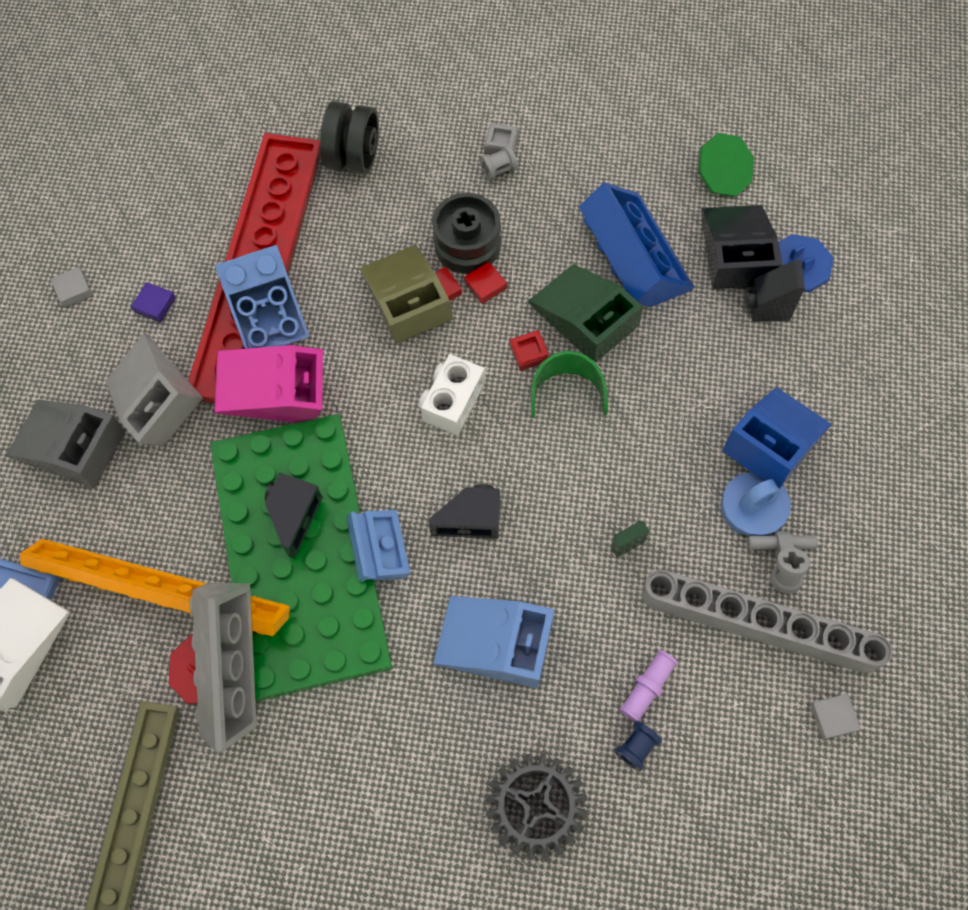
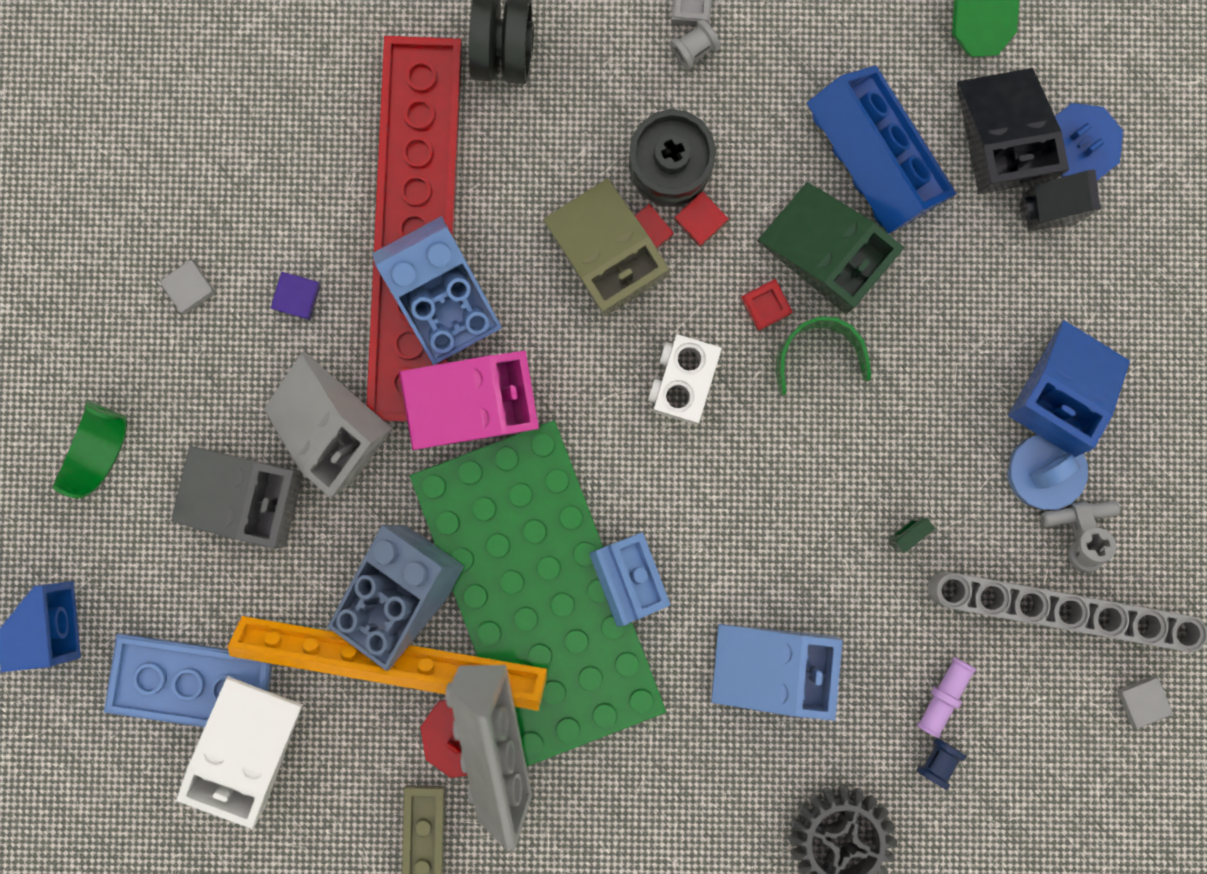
camera: 10 degrees left, 20 degrees up
(172, 528) = (394, 594): none -> sand blue slope
(292, 509) = (526, 558): black slope -> none
(469, 514) = (729, 527): black slope -> none

